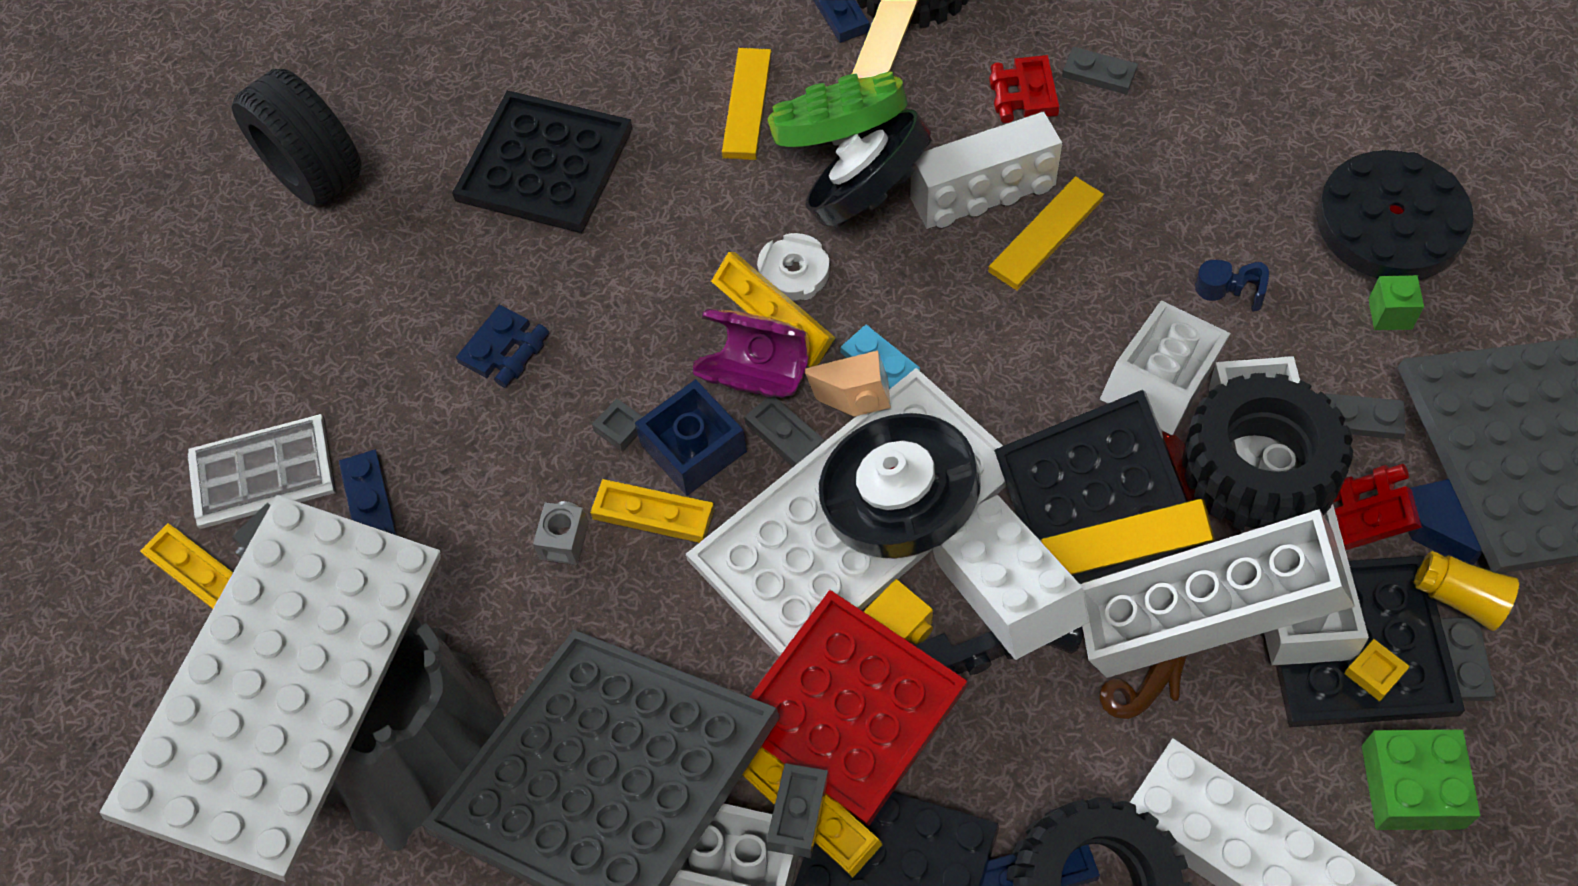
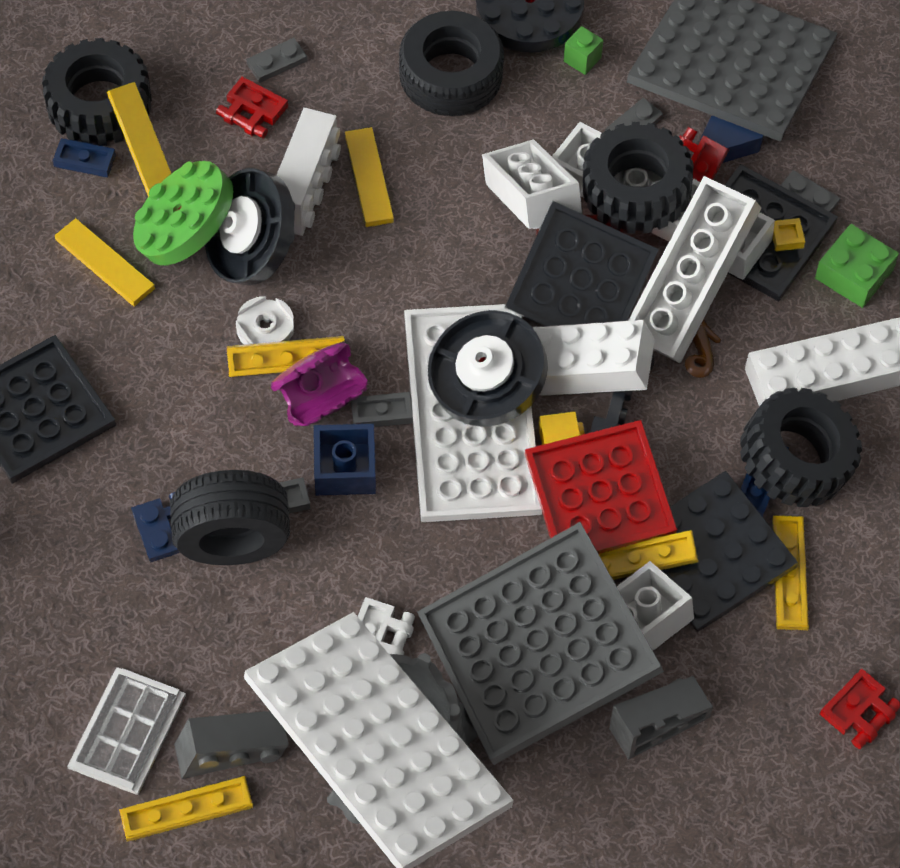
camera: 60 degrees left, 0 degrees up
(367, 491) = (212, 677): dark blue plate -> none
(519, 602) = (378, 619): none -> white plate
(520, 379) = (229, 517): none -> black tyre
(563, 547) = (346, 587): light grey brick -> none
(652, 511) = (372, 517): yellow plate -> none
(797, 810) = (646, 555): dark grey plate -> none
(852, 384) = (388, 349): light nougat slope -> none
(894, 362) = (376, 326): medium azure plate -> none
(1132, 537) = (625, 278): yellow tile -> none
(1217, 279) = (486, 117): dark blue leg -> none
(1251, 163) = (451, 91): none -> black tyre
(1468, 588) = (780, 158): yellow plant -> none

